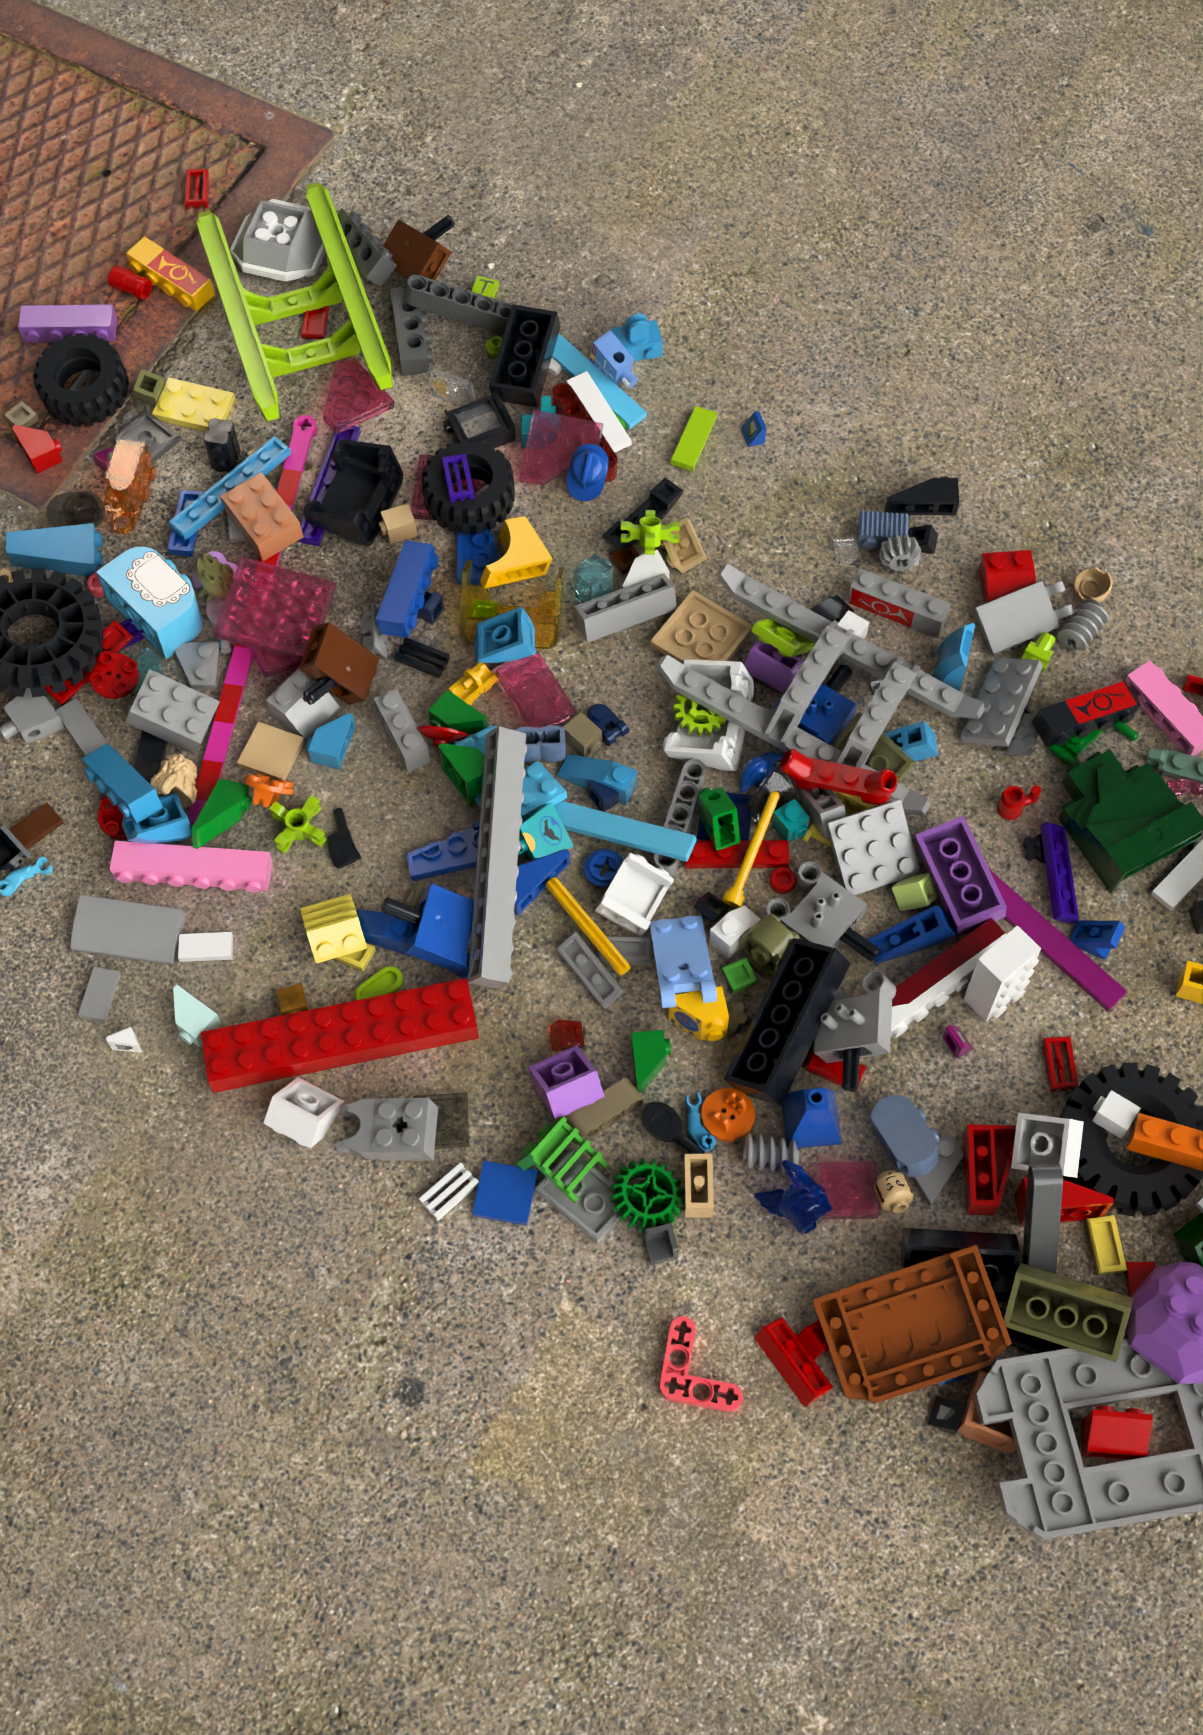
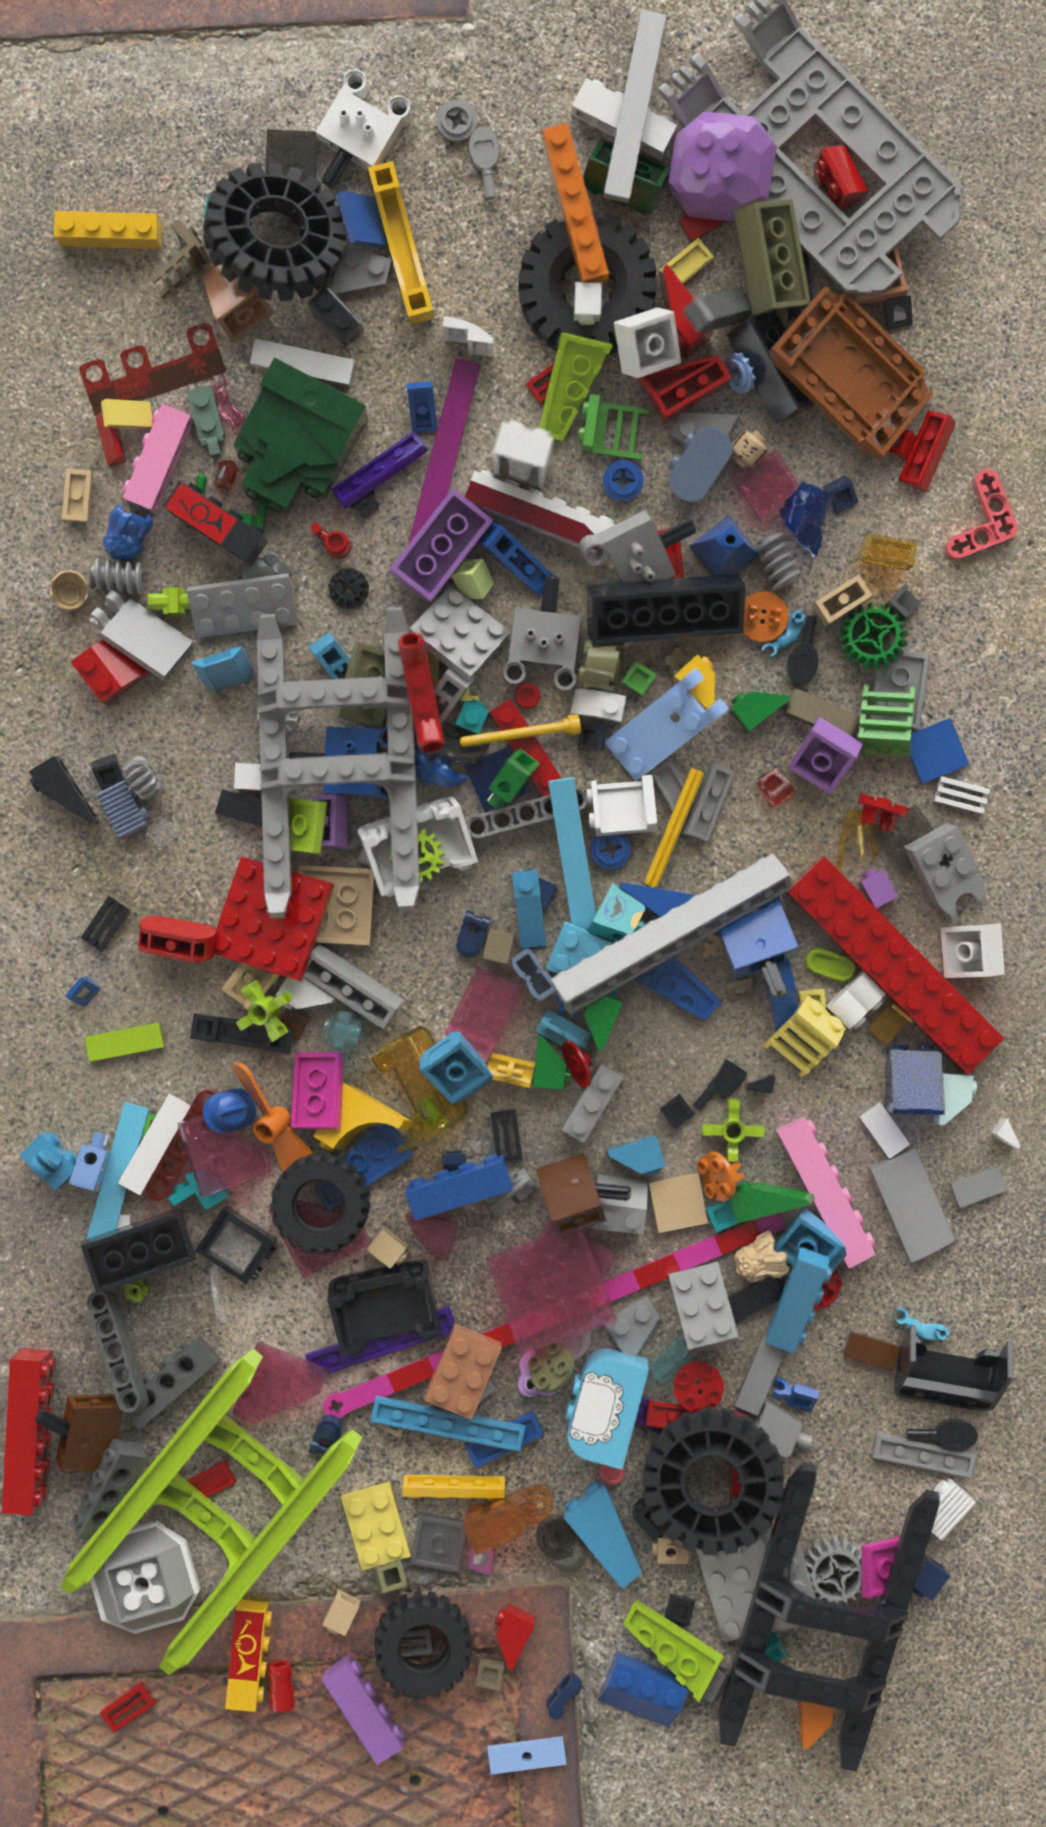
camera: 120 degrees left, 25 degrees up
(43, 749) = (798, 1396): none -> blue plate
(149, 347) = (341, 1613): none -> tan brick
(176, 471) = (453, 1486): none -> yellow plate
(222, 445) = (411, 1461): black brick -> none
(228, 986) = (914, 1080): none -> clear blue slope
(235, 772) = (721, 1215): none -> teal plate
(289, 407) = (329, 1430): none -> dark blue plate
(317, 868) = (763, 1084): none -> black slope
(332, 982) = (856, 1000): none -> white brick
(346, 792) = (677, 1111): none -> black plate
(380, 562) = (434, 1232): none -> clear pink slope
(417, 1063) = (877, 887): none -> medium lavender brick
(421, 206) = (25, 1439): none -> red brick
(460, 494) = (344, 1195): dark purple tile -> none
(483, 1106) = (883, 808): none -> red plate
(485, 286) = (75, 1345): lime tile -> none
(488, 1080) = (853, 821): none -> clear yellow plant
(555, 497) = (274, 1125): none -> orange piece
(558, 538) = (317, 1091): none -> dark pink tile
(694, 572) = (277, 944): none -> red plate
(718, 1255) = (888, 552): none -> clear yellow brick
(751, 506) = (176, 939): none -> red brick
(800, 1254) = (843, 493): none -> dark blue slope
(804, 468) = (93, 941): none -> black tile
(899, 603) = (194, 750): light grey brick -> none
(926, 1056) = (632, 473): none -> blue gear
(956, 1041) = (584, 471): magenta slope -> none
(963, 802) = (349, 599): none -> black gear
(972, 1223) = (743, 377): none -> light blue gear
(995, 1070) = (594, 431): none -> bright green plate
(1051, 1067) = (573, 372): none -> lime wing
(1117, 649) = (126, 534): none -> blue hair
(1124, 755) = (225, 474): none -> clear red slope
(1140, 1005) = (478, 340): none -> white slope
(1172, 635) = (77, 495): none -> tan plate

